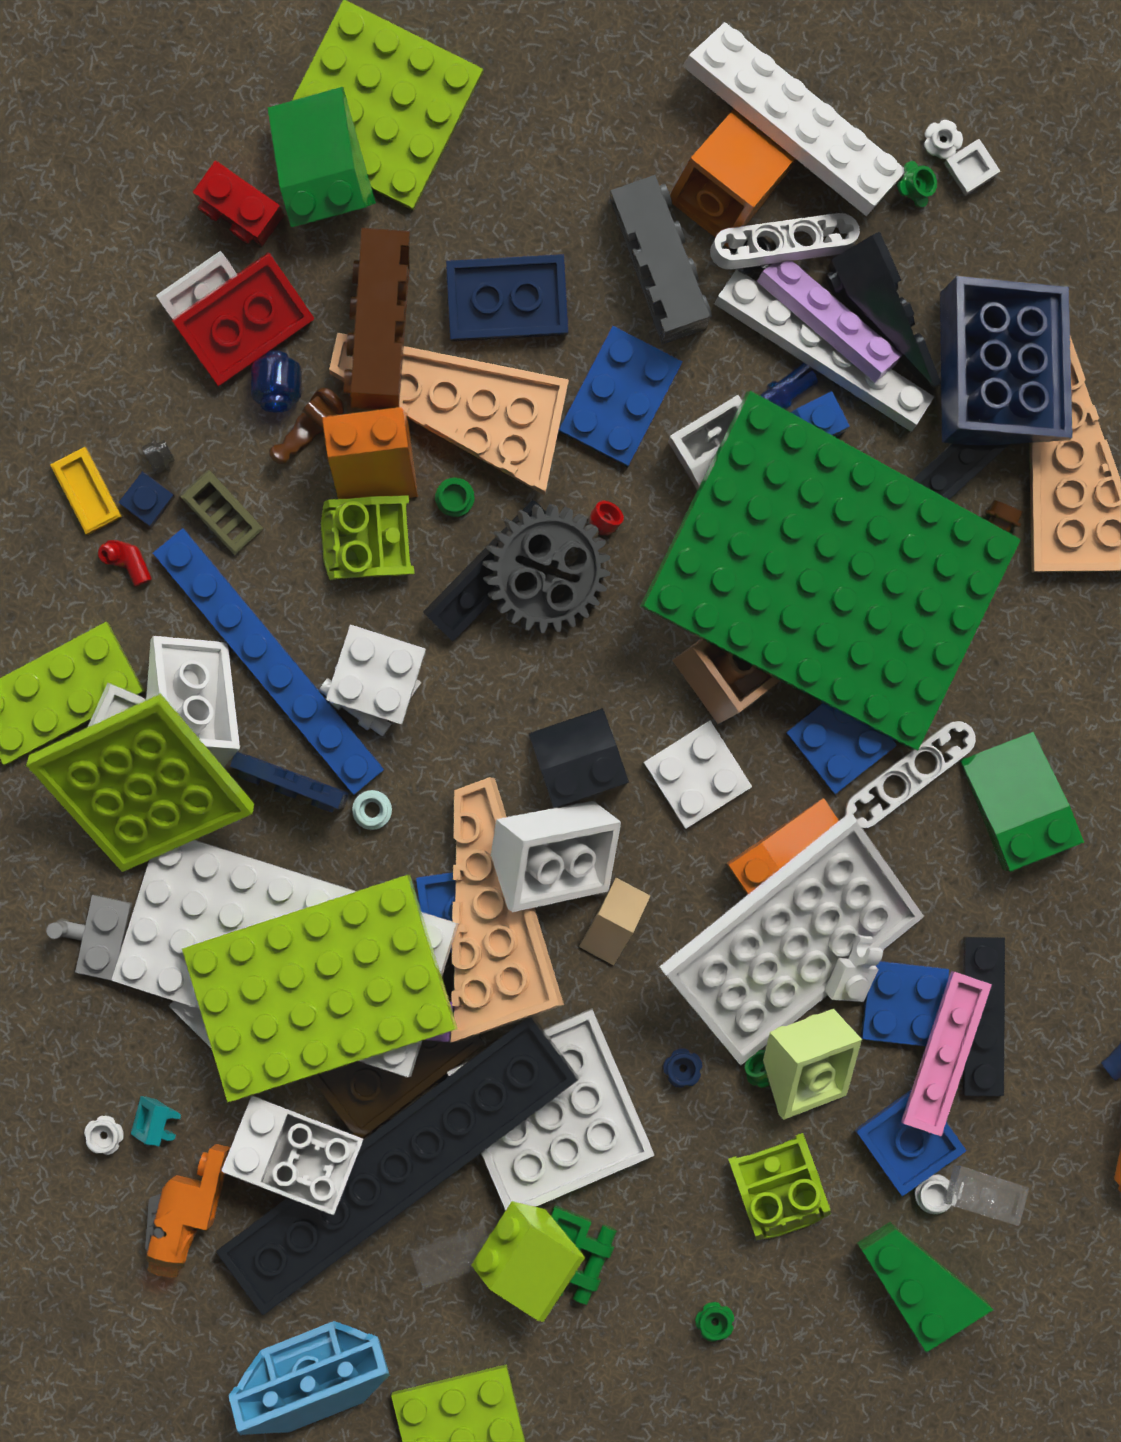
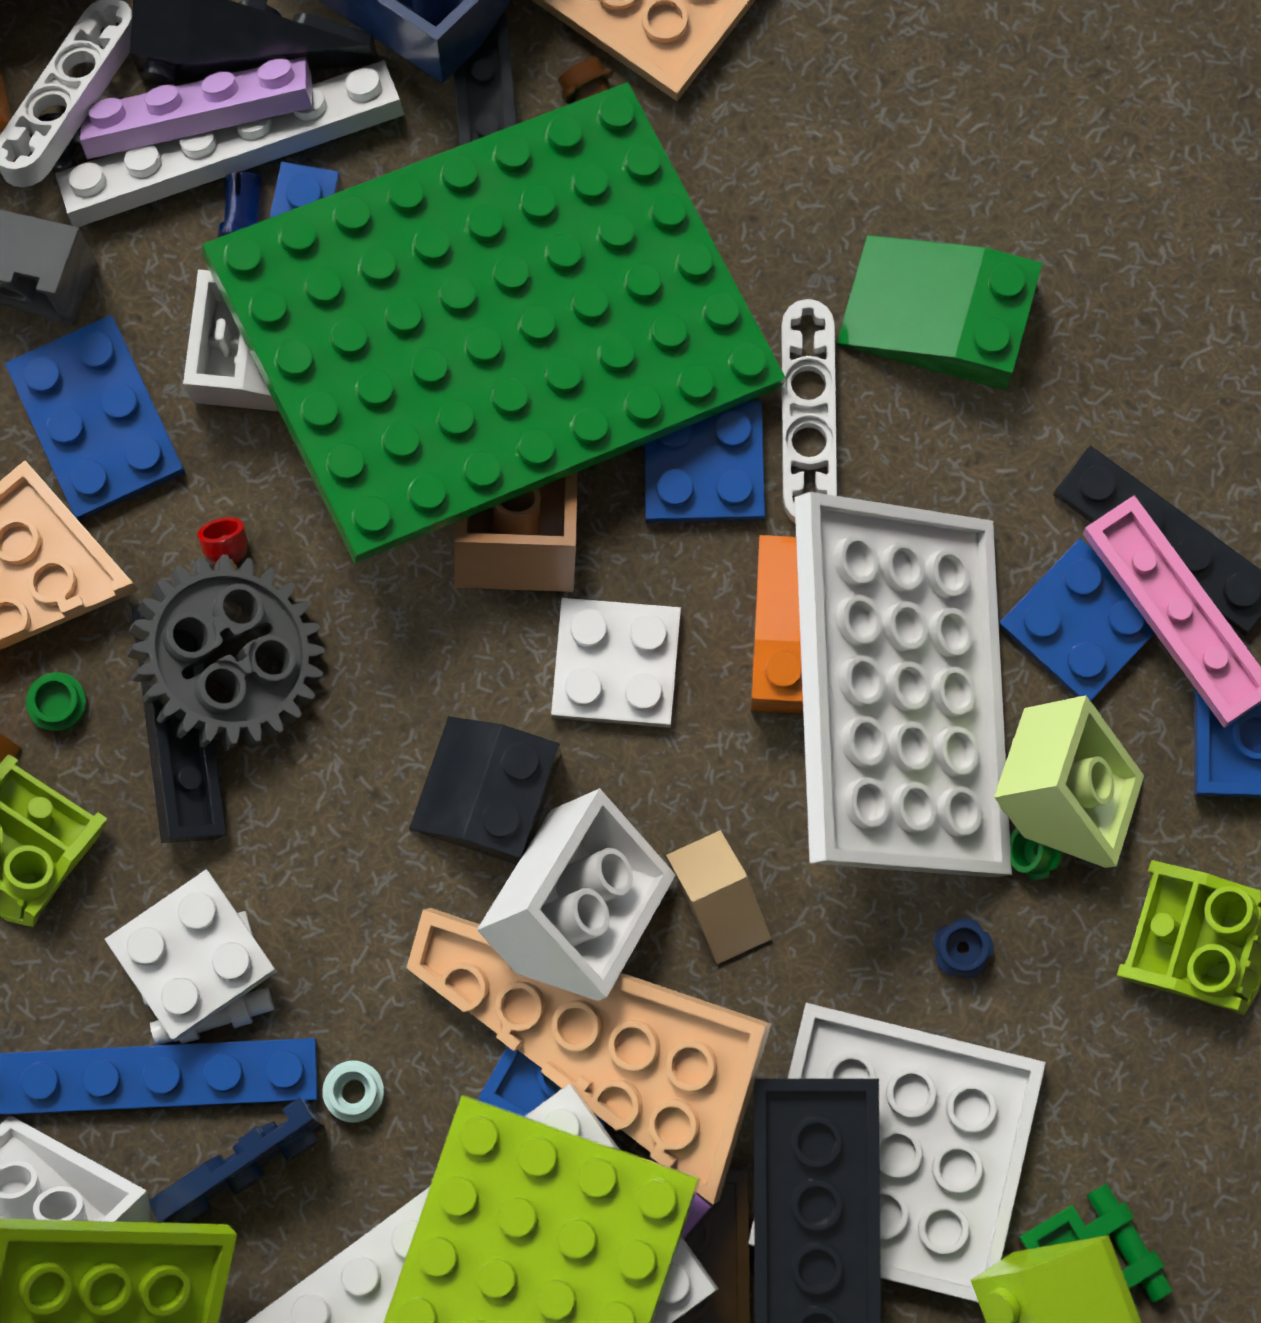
camera: 45 degrees left, 10 degrees down
(855, 975) = (1001, 649): white plate -> none

